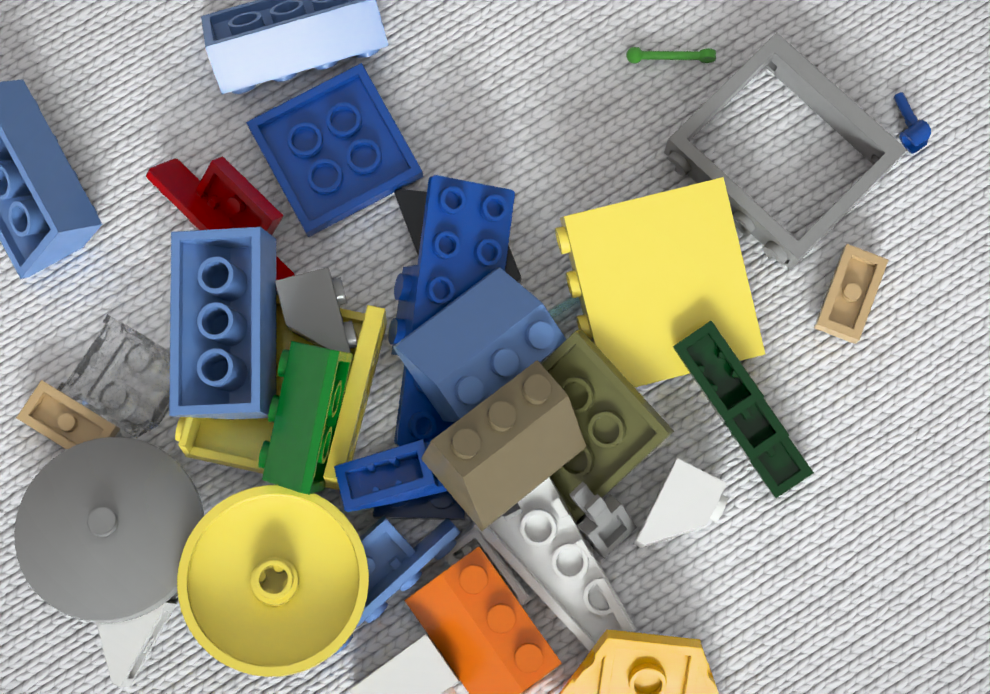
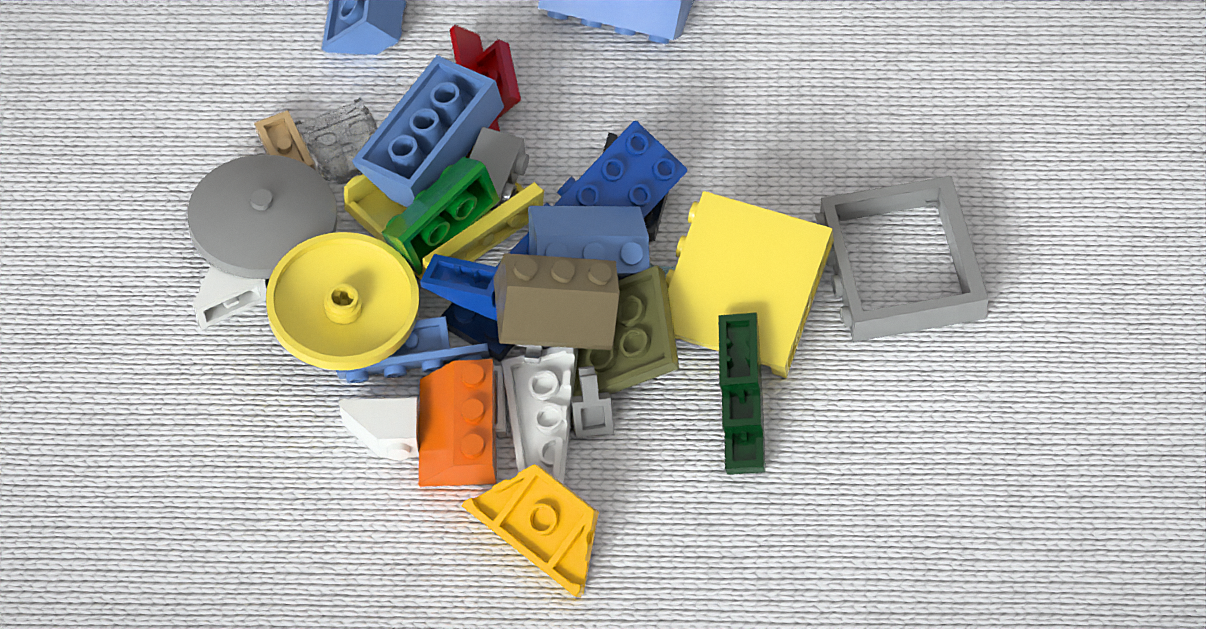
camera: 35 degrees right, 20 degrees down
(335, 149) = (587, 85): blue plate -> none
(635, 55) = (896, 172): bright green hinge -> none
(682, 504) = (652, 432): white slope -> none
(851, 293) = (881, 374): tan plate -> none
(918, 131) = (1011, 304): blue hand -> none

